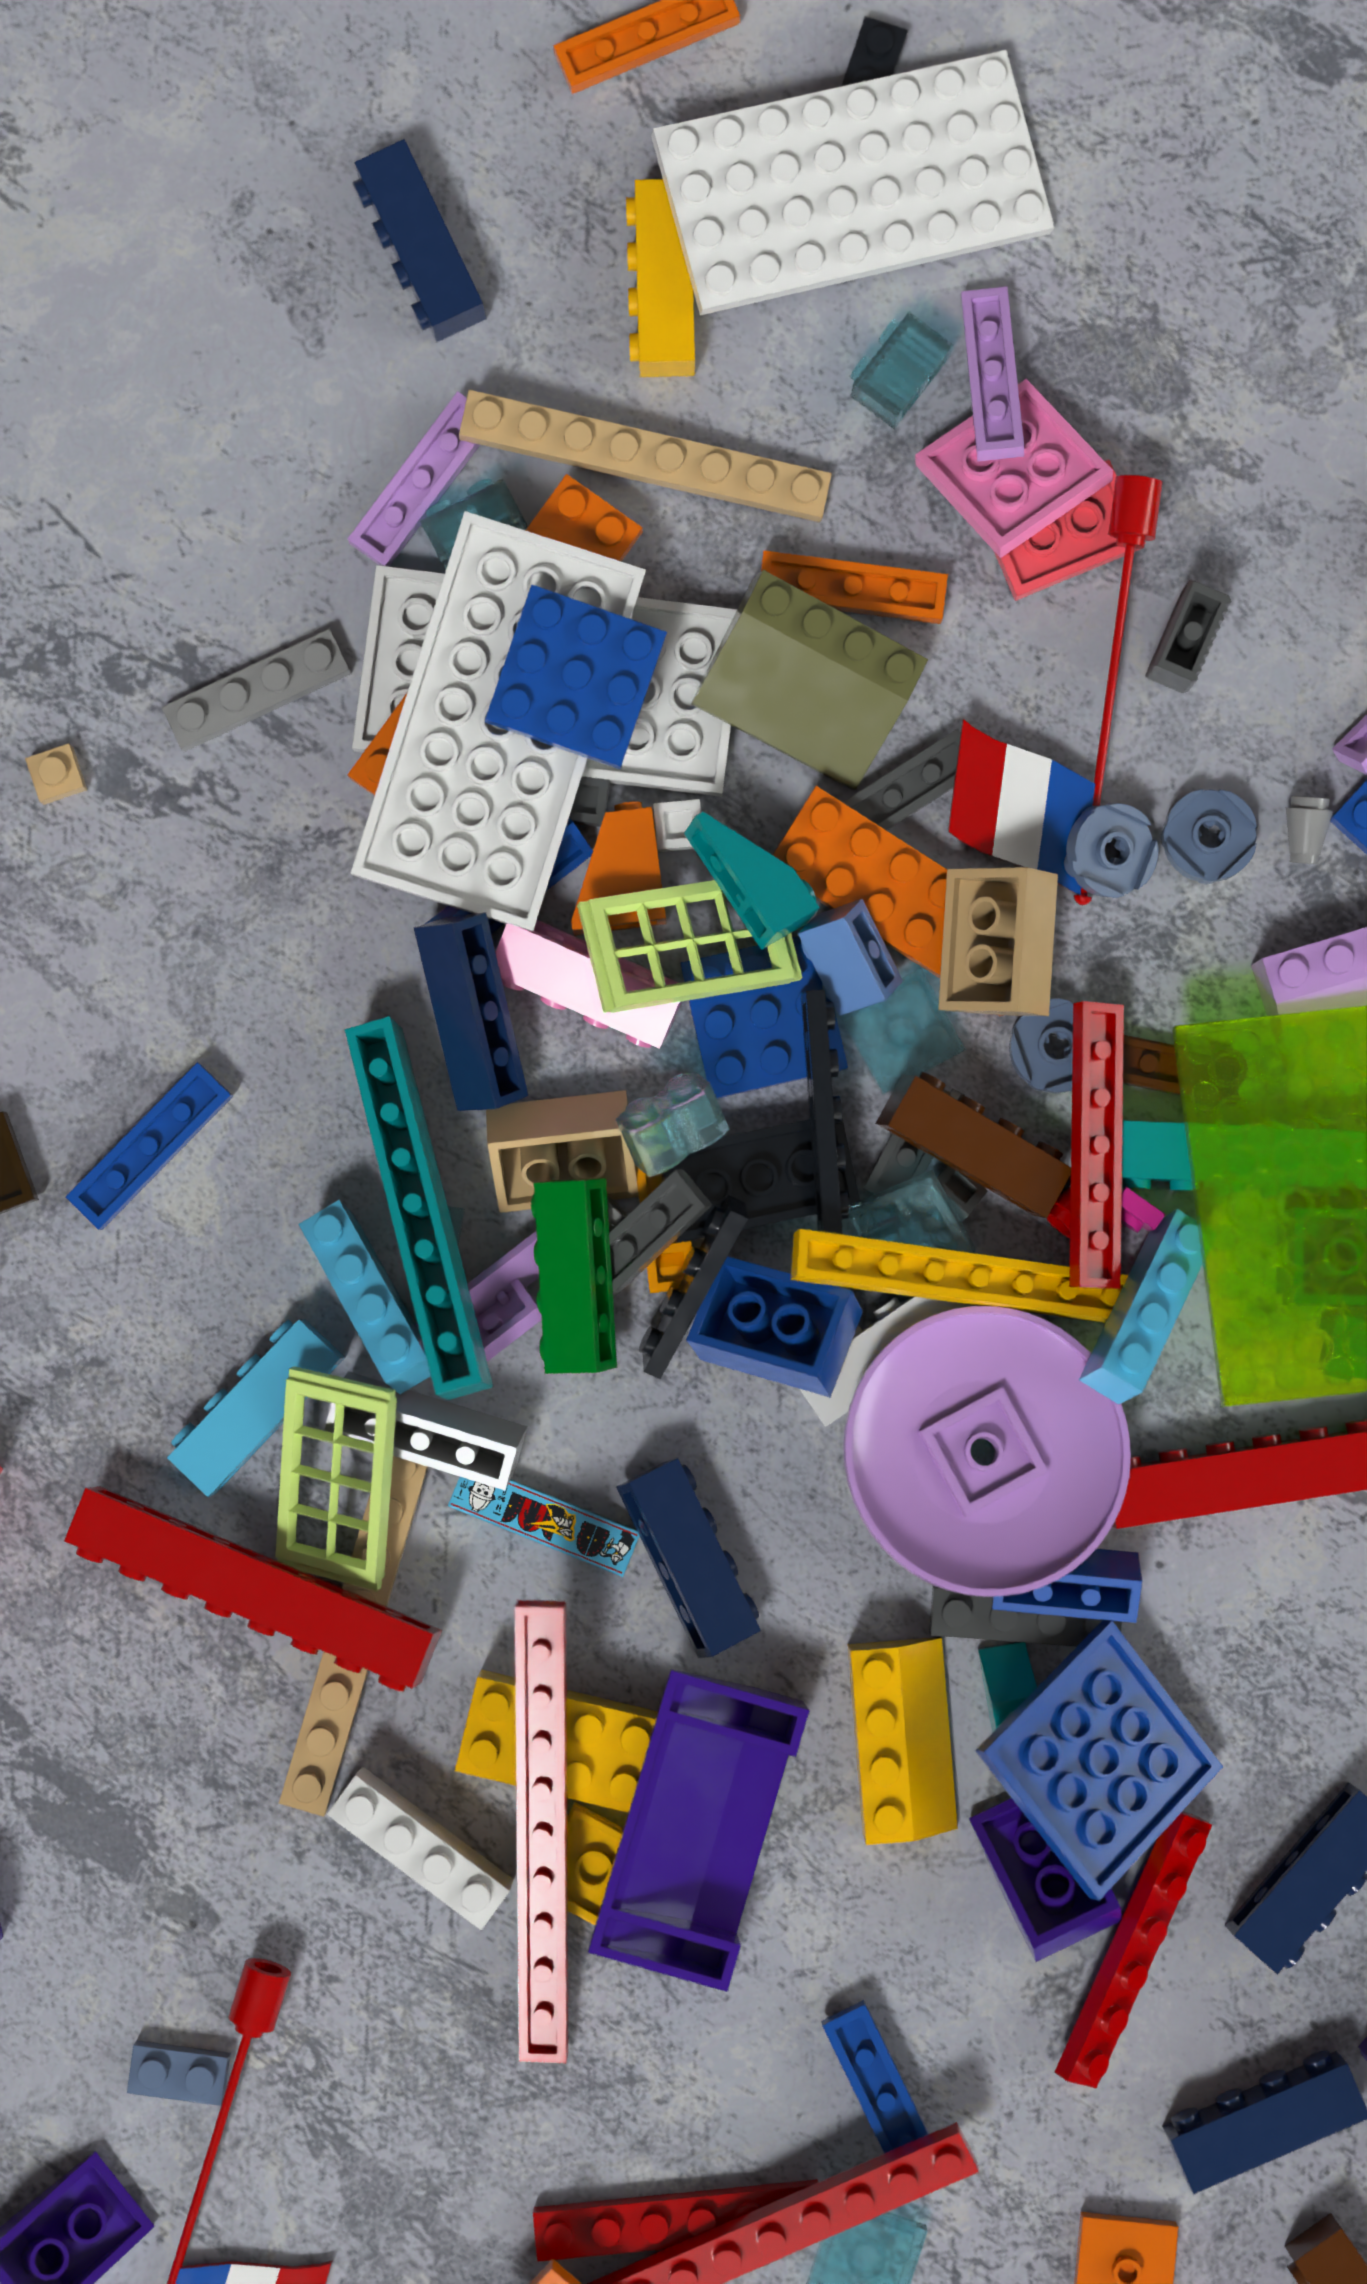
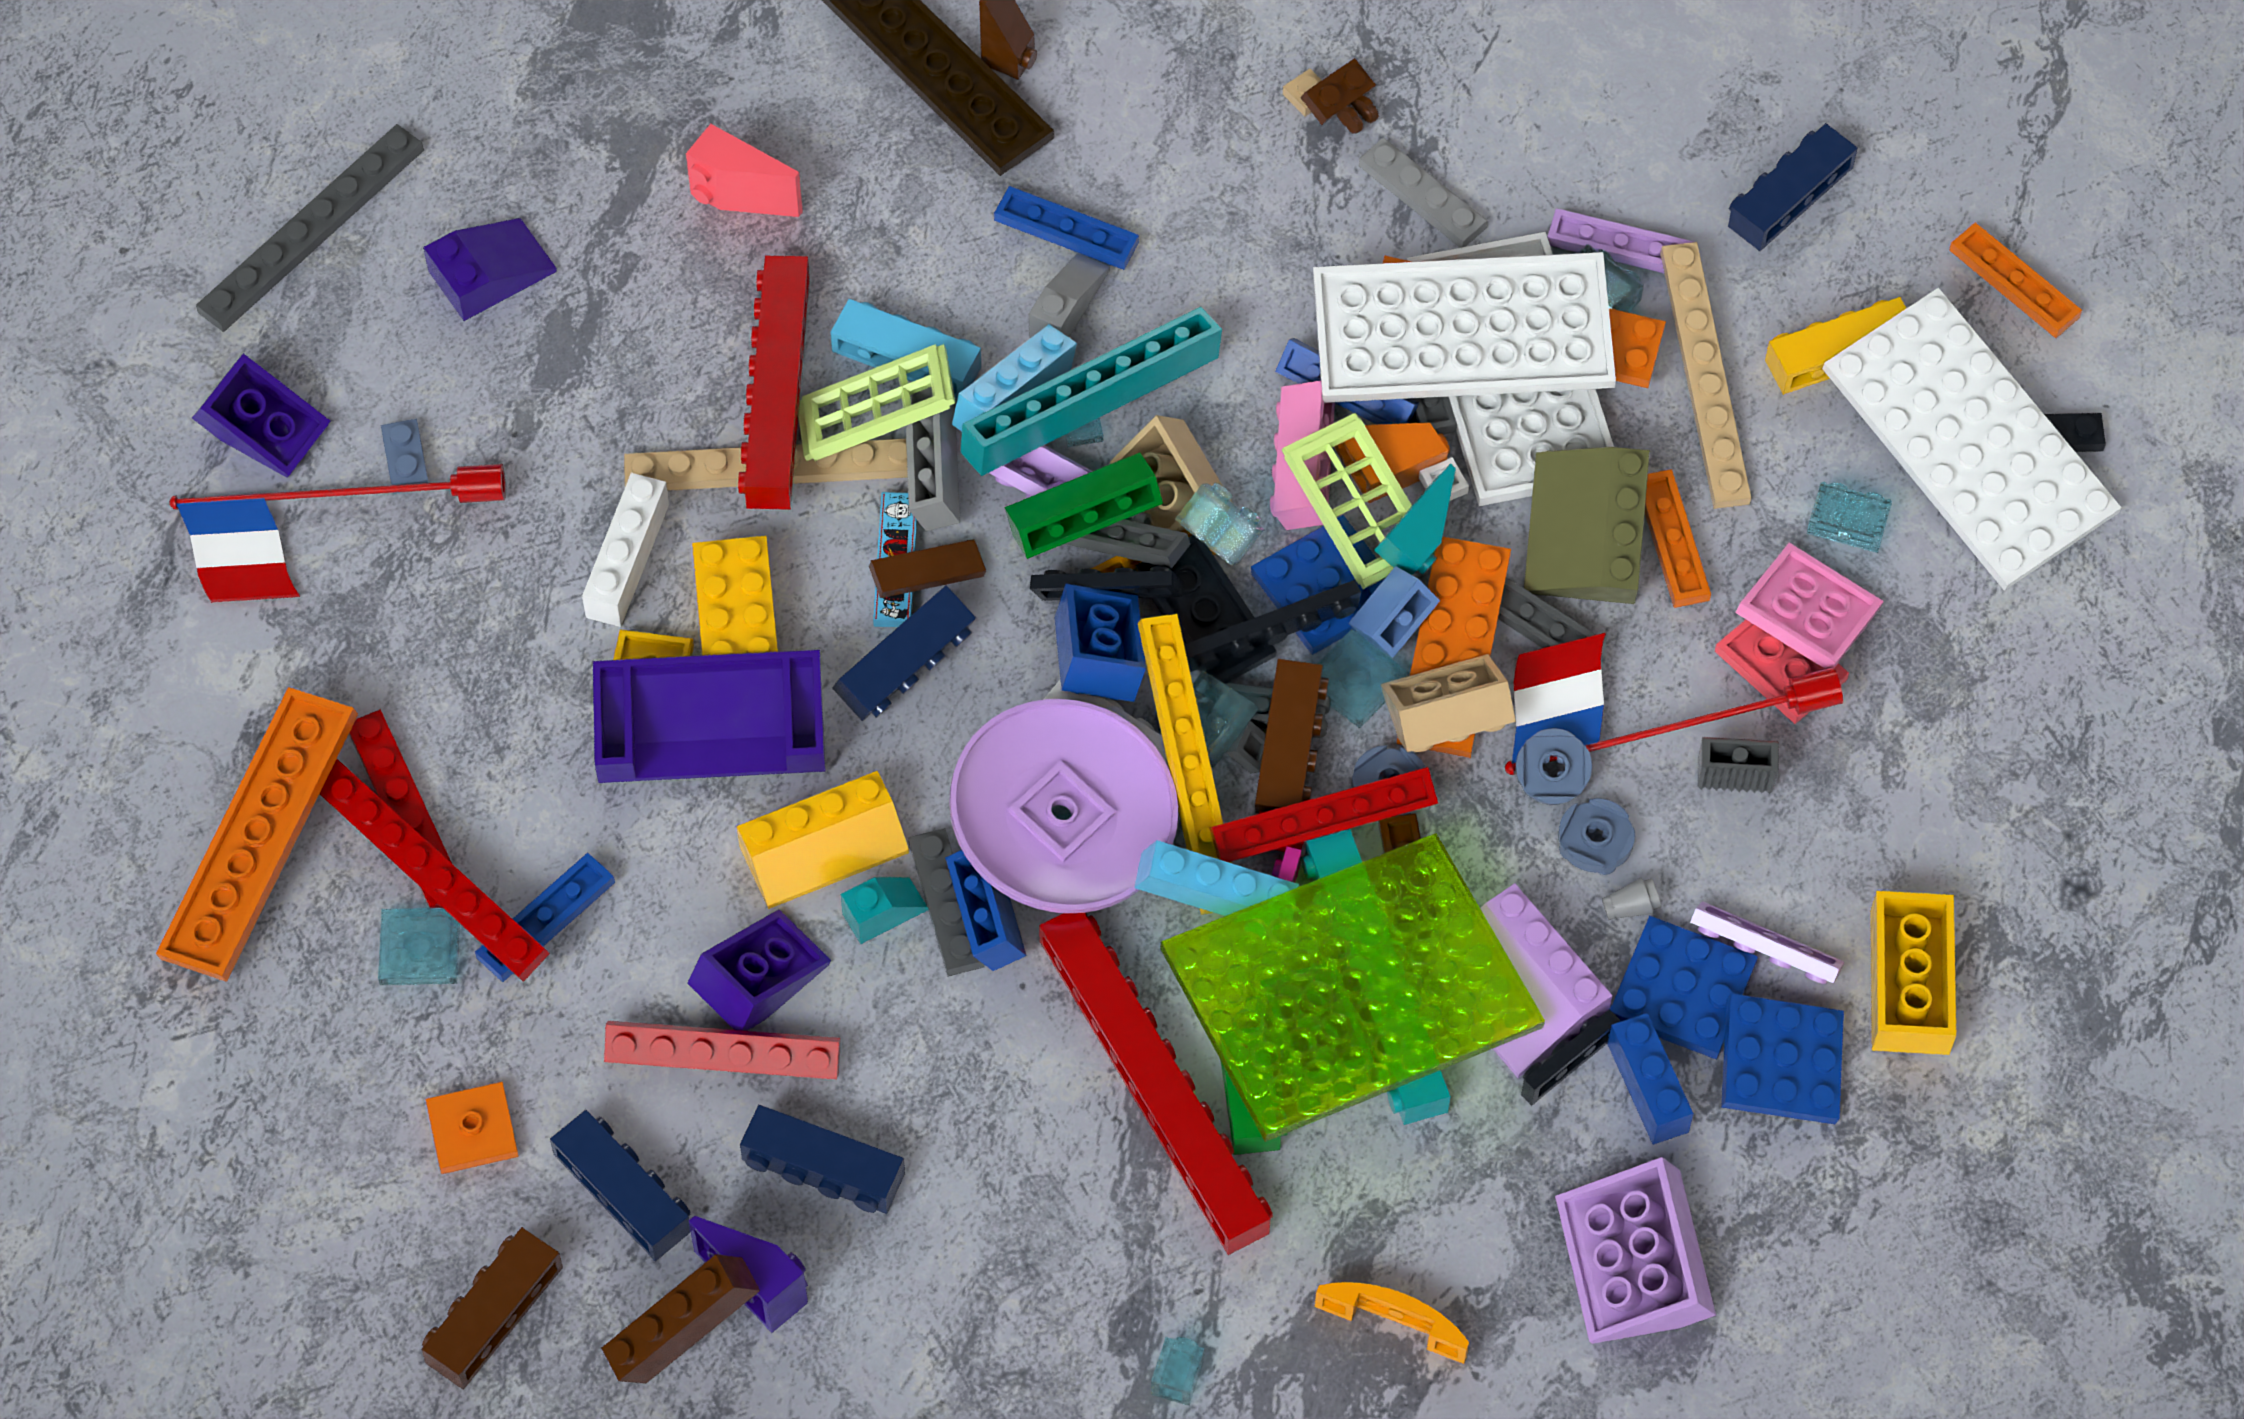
camera: 65 degrees right, 25 degrees down
(77, 734) = (1339, 91): none -> reddish brown hinge
(251, 1180) = (1067, 295): none -> light grey slope
(471, 1012) = (1247, 380): dark blue brick -> none
(542, 1829) = (668, 605): plate -> none
(575, 677) = (1516, 359): blue plate -> none
(578, 1489) = (927, 568): none -> reddish brown tile
(992, 374) = (1873, 570): lavender plate -> none
(1100, 1759) = (860, 961): blue plate -> none

